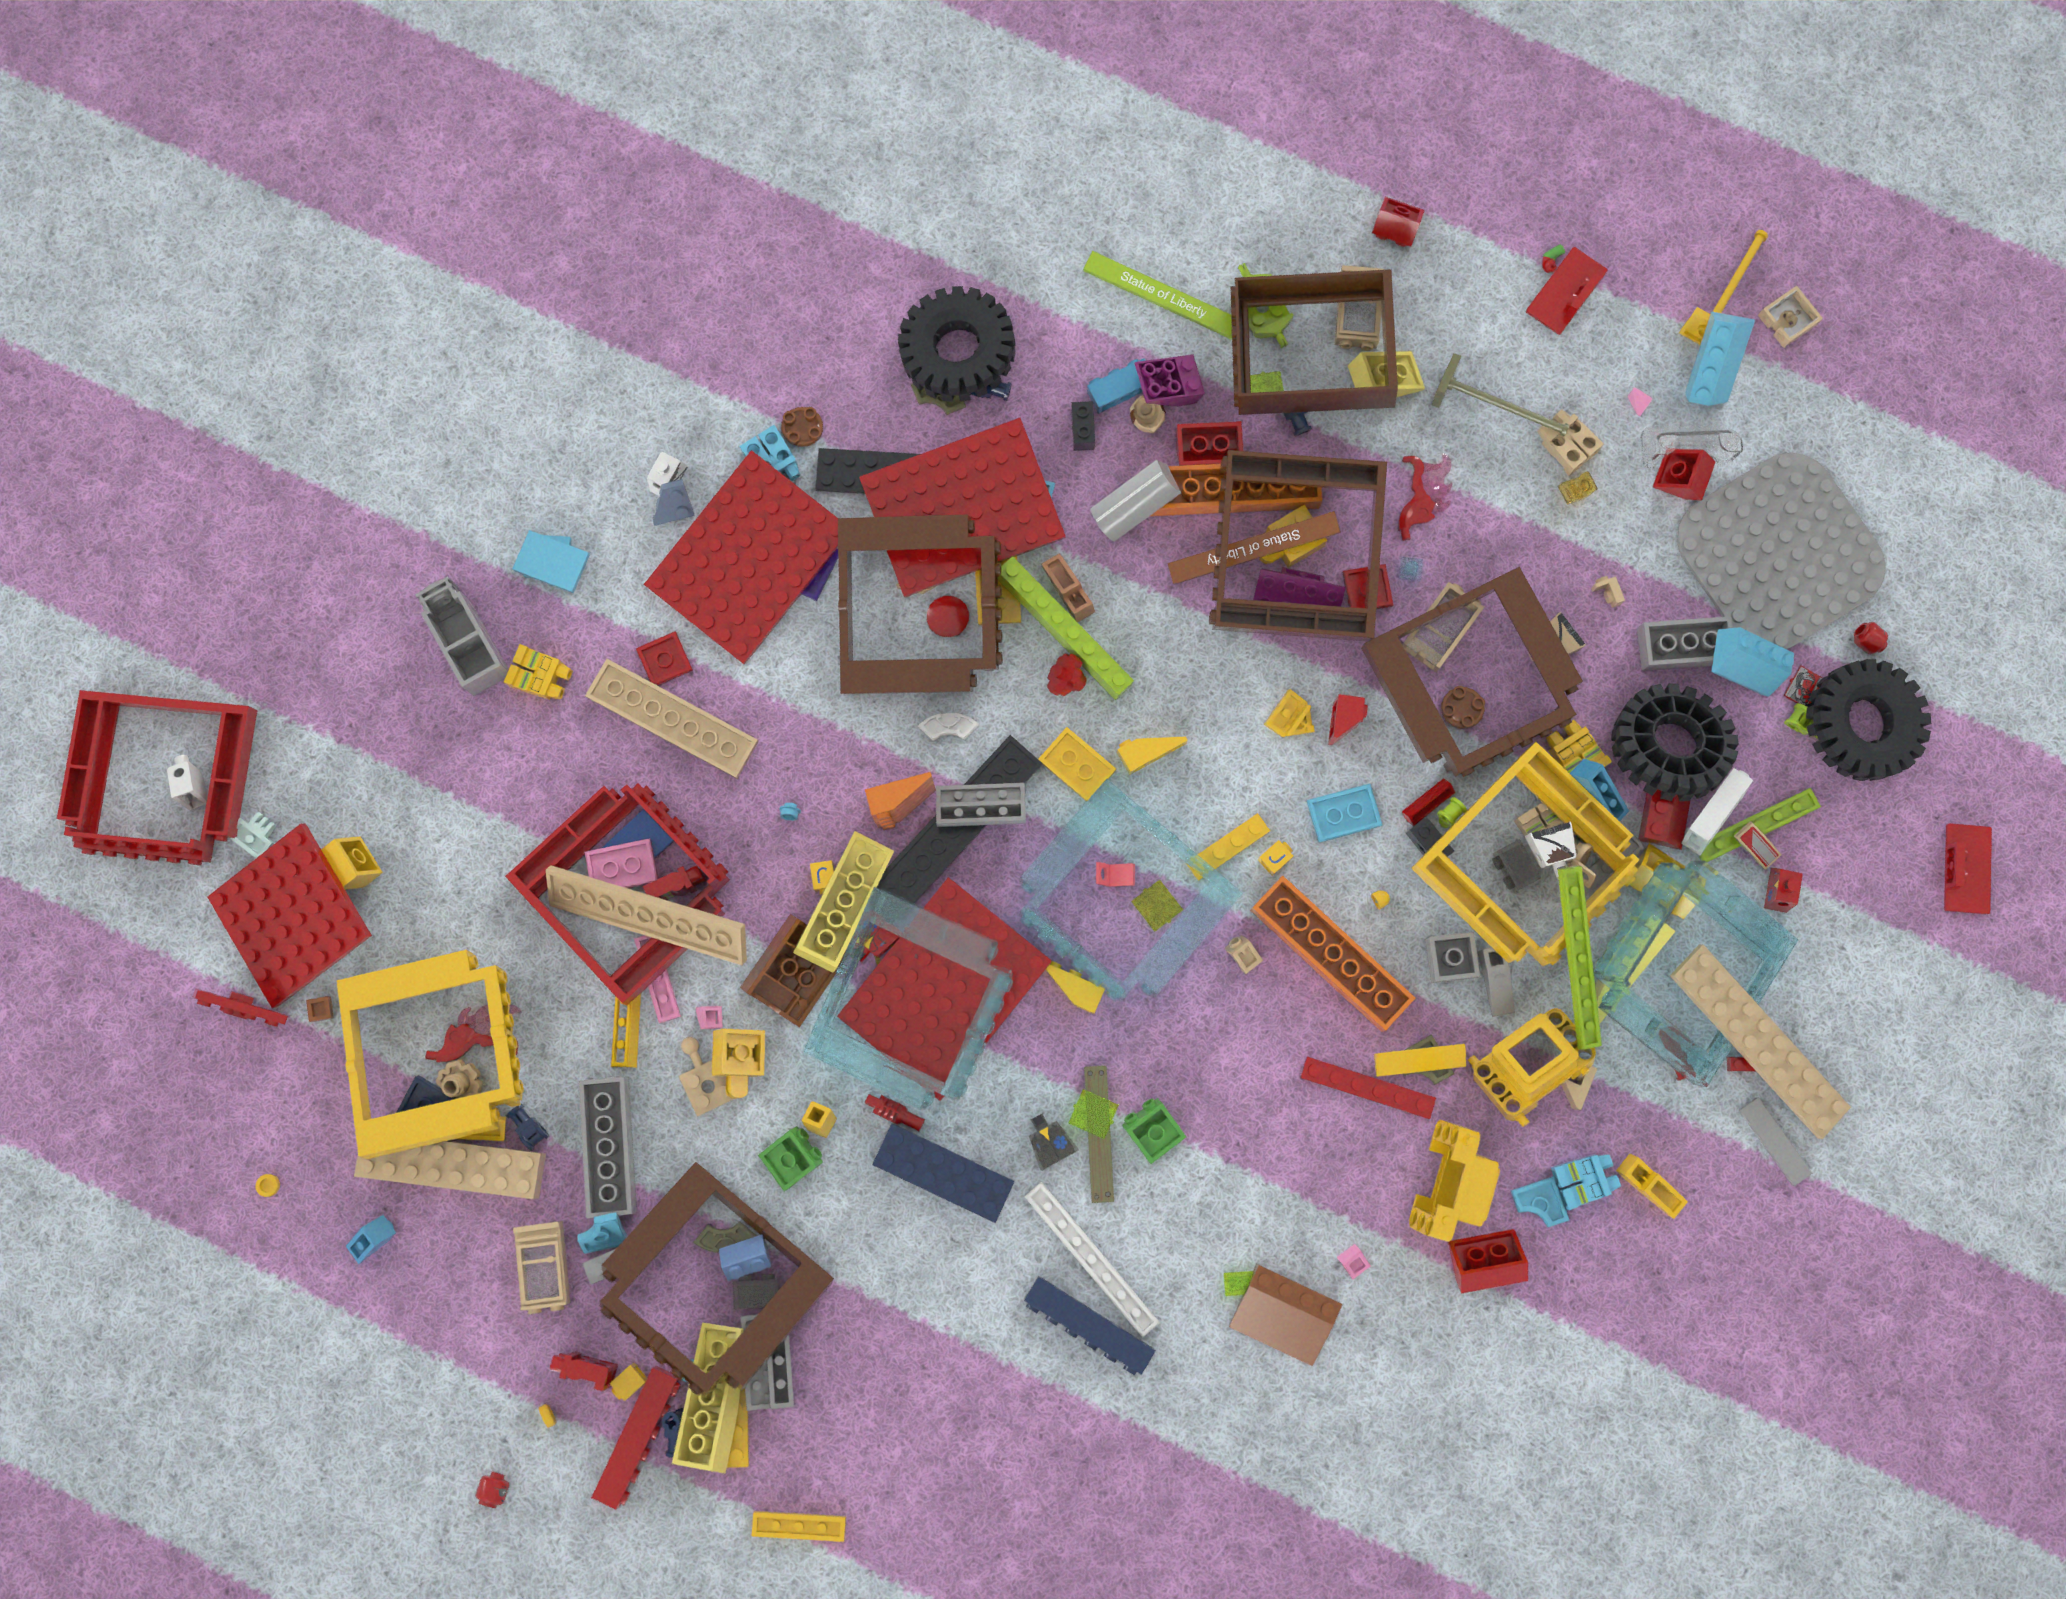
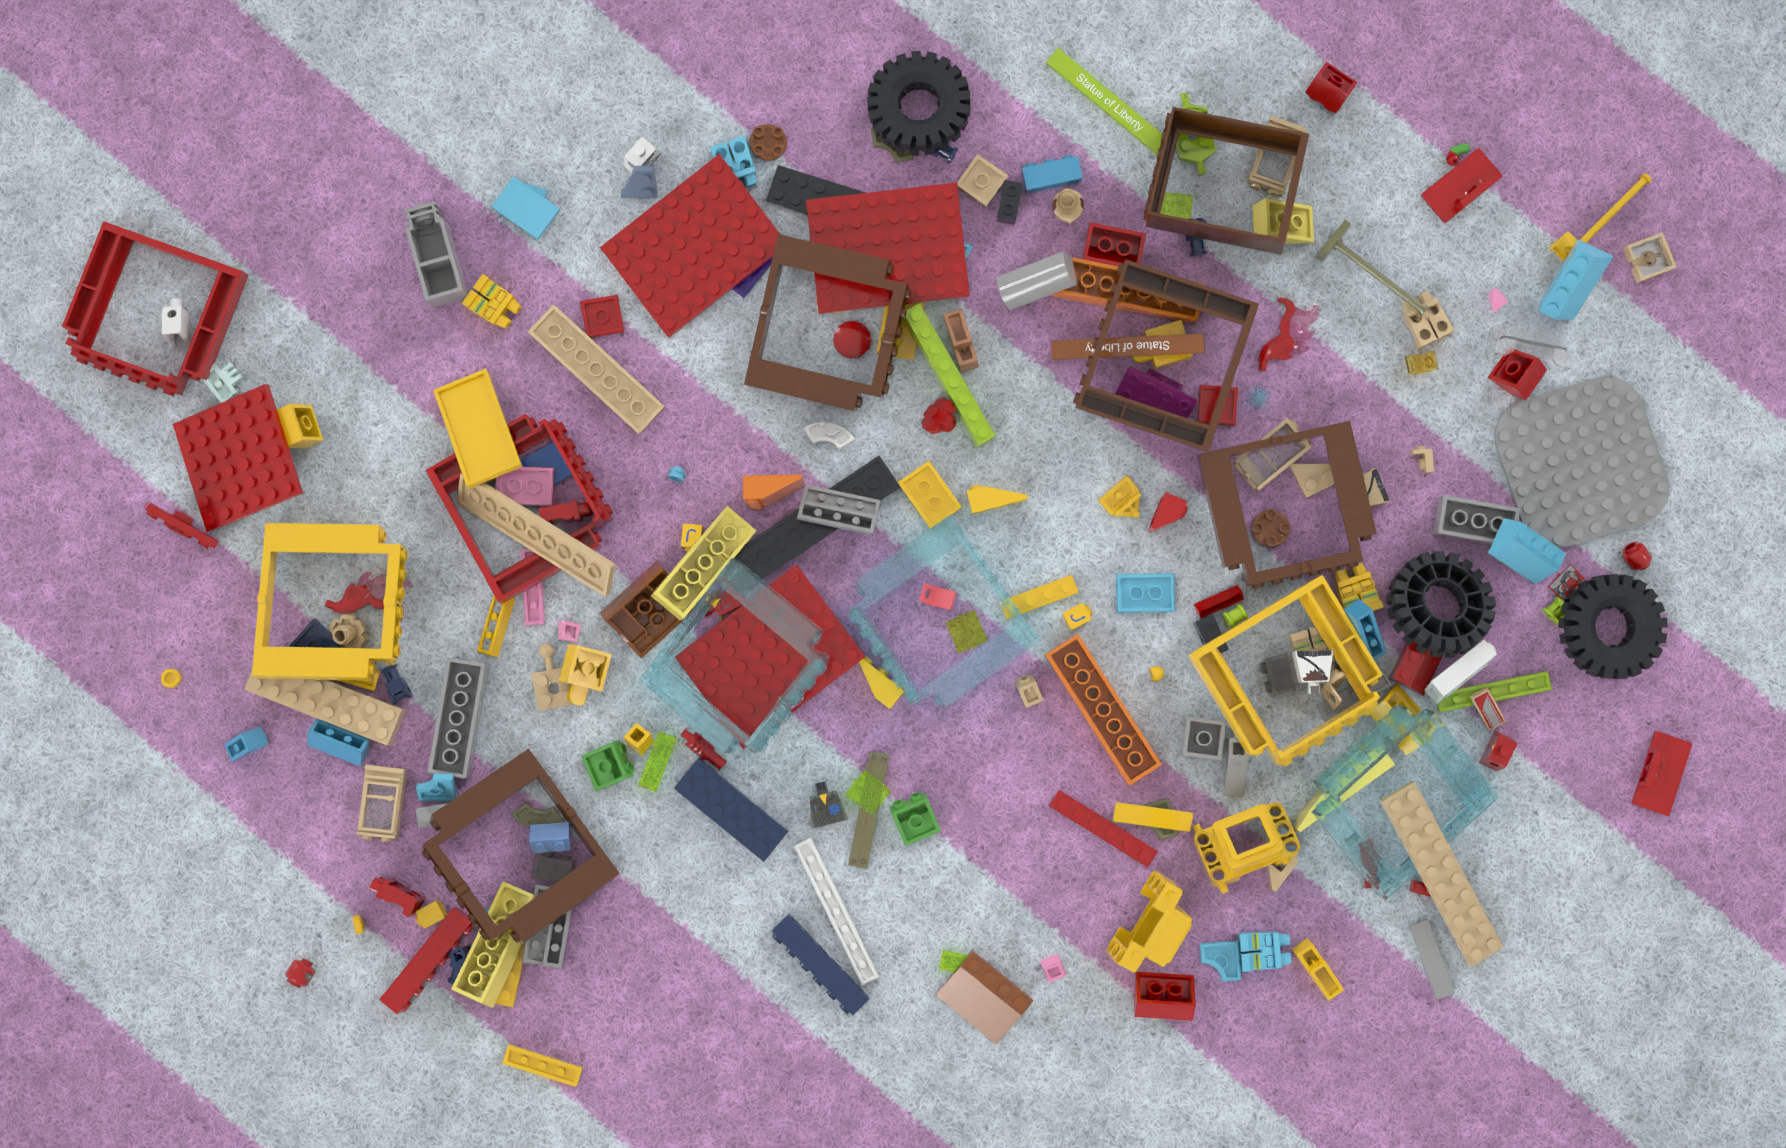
camera: 15 degrees right, 5 degrees up
(319, 1009) = (246, 542): dark orange plate -> none
(476, 1209) = (338, 742): none -> dark azure brick
(553, 815) = (477, 428): none -> yellow tile
(846, 1139) = (657, 761): none -> clear neon green tile
(1046, 410) = (982, 180): none -> tan plate
(1170, 381) = (1094, 182): magenta slope -> none
(1494, 640) = (1312, 477): none -> tan wing
(1579, 957) = (1306, 766): lime tile -> none

